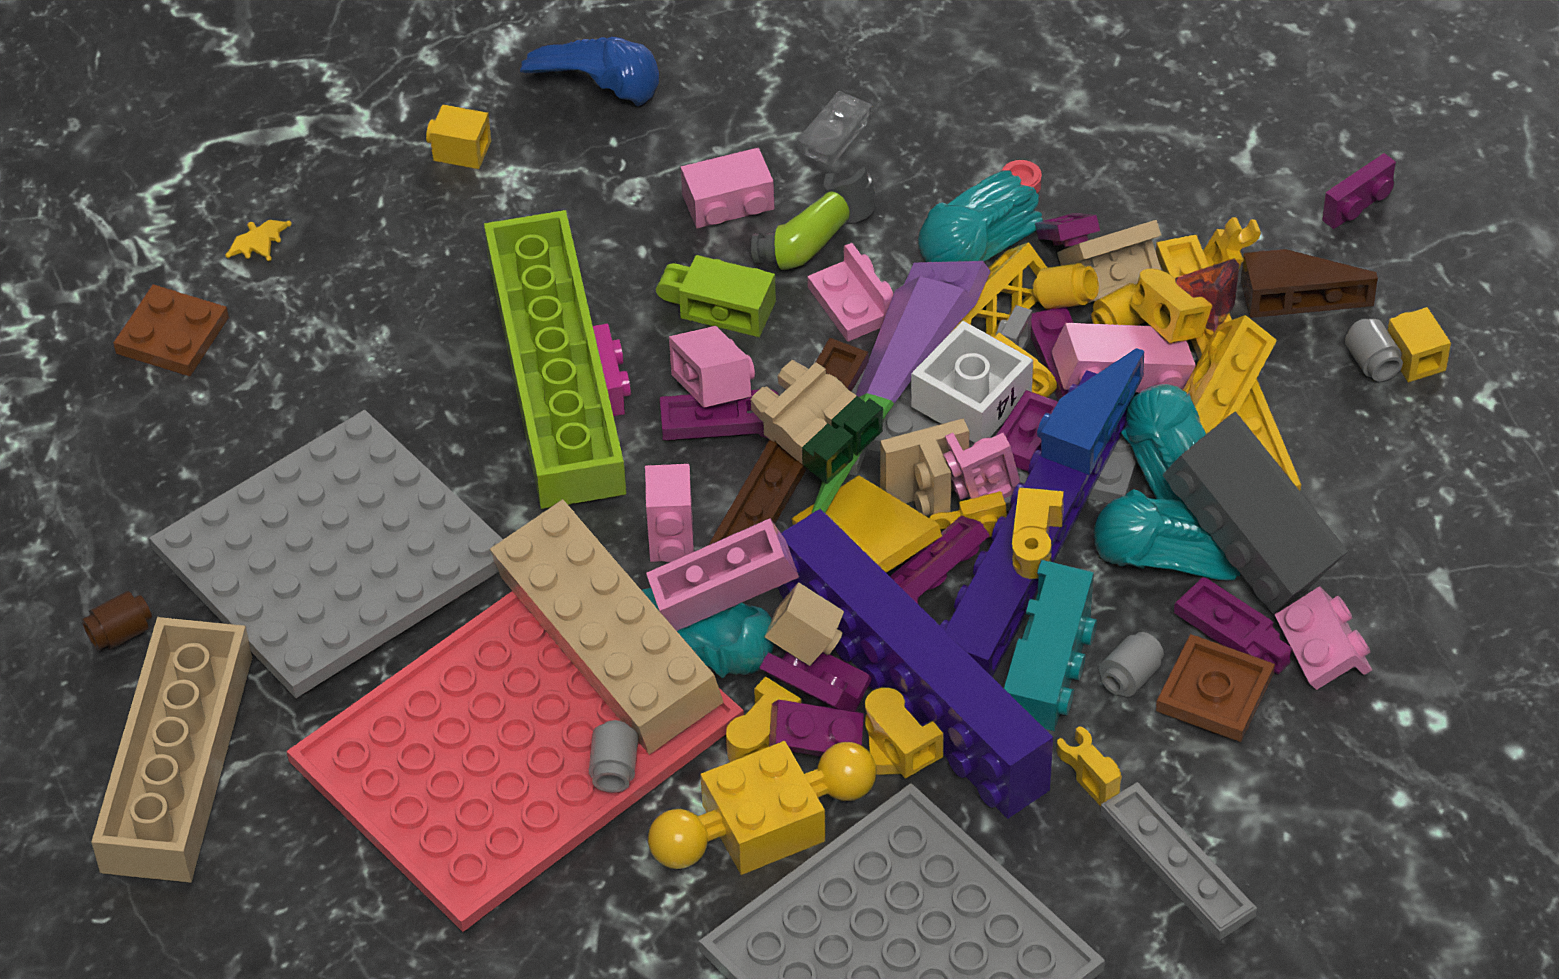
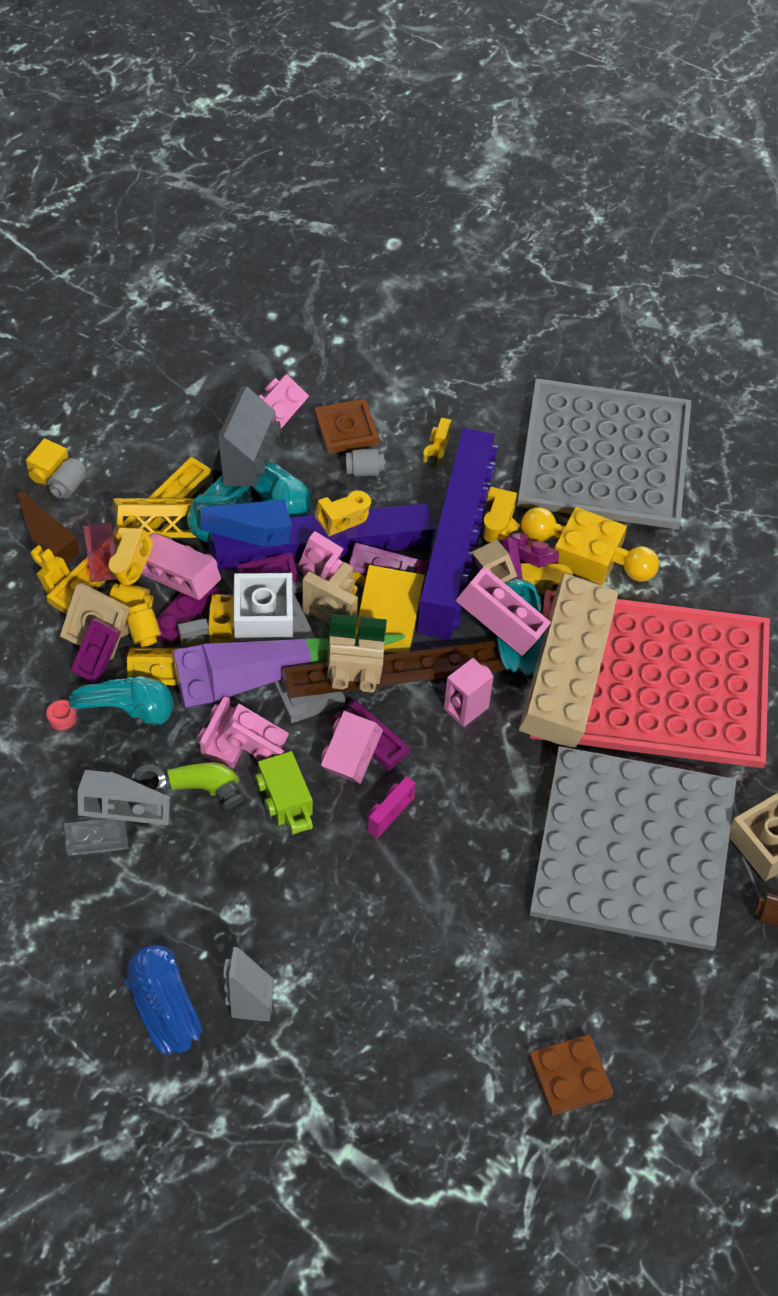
camera: 135 degrees left, 5 degrees up
(258, 239) = (460, 1088): yellow piece -> none
(459, 136) = (283, 1031): yellow brick -> none
(519, 111) = (247, 988): none -> light grey slope
(554, 360) = (410, 835): lime brick -> none
(613, 756) = (632, 610): light grey brick -> none
(727, 187) = (201, 847): bright pink brick -> none
(815, 301) = (254, 734): none -> bright pink bracket
(867, 140) = (119, 798): none -> light grey slope
(1053, 643) = (396, 485): teal wedge -> none
(1178, 861) = (453, 389): light grey tile -> none
(1232, 623) = (302, 441): magenta hinge -> none

